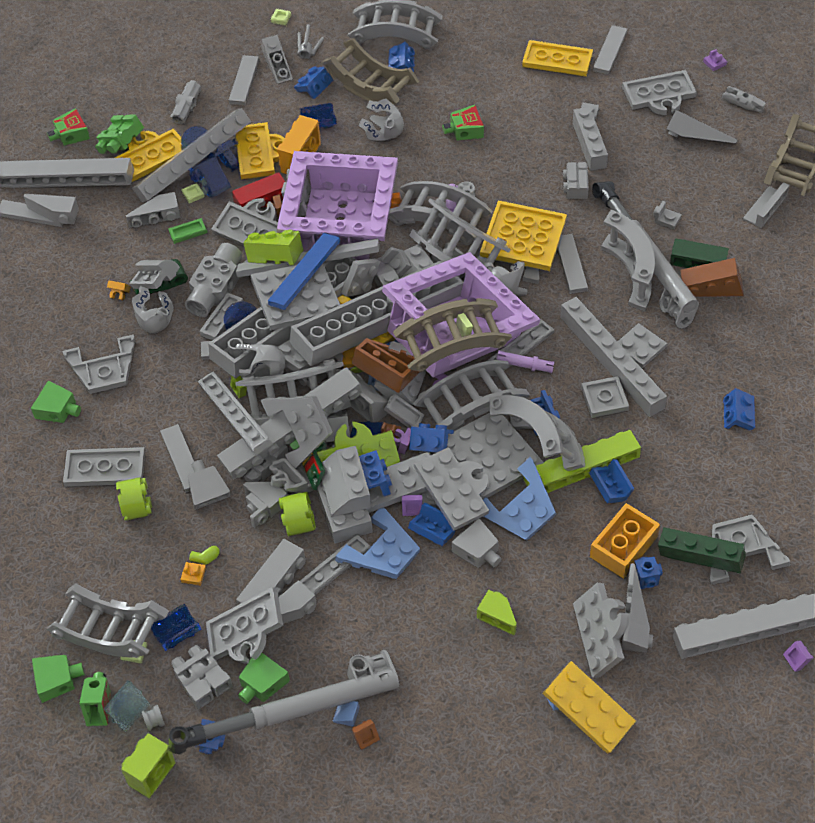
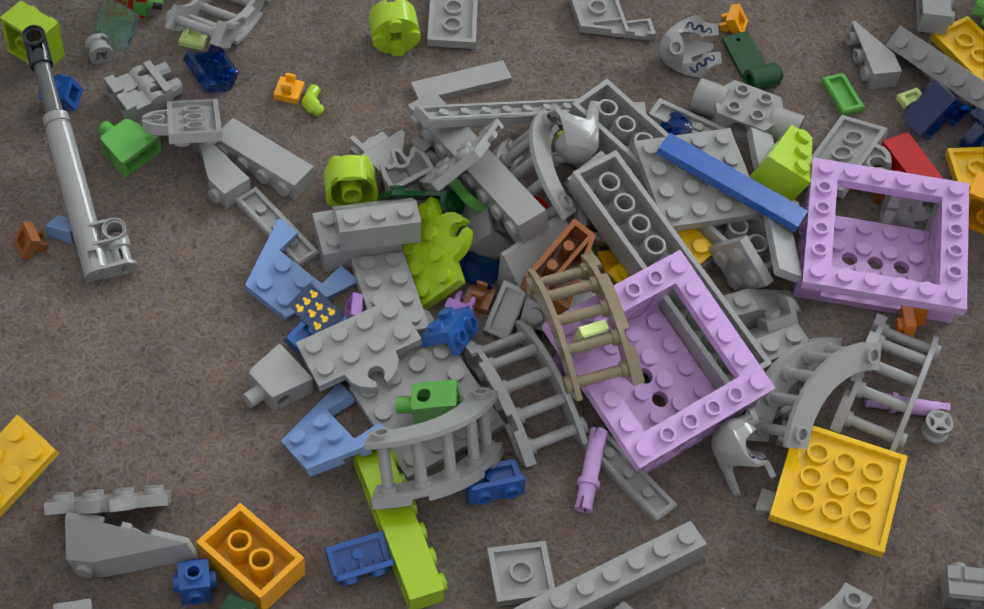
camera: 85 degrees right, 0 degrees up
(153, 272) = (752, 45): light grey brick -> none
(206, 485) = (402, 91): light grey torso -> none
(374, 472) = (390, 256): blue bracket -> none
(418, 524) = (315, 309): none -> dark blue sticker
(497, 612) = (168, 394): lime slope -> none
(500, 436) = (429, 399): none -> bright green torso
(571, 264) = (794, 562): light grey tile -> none

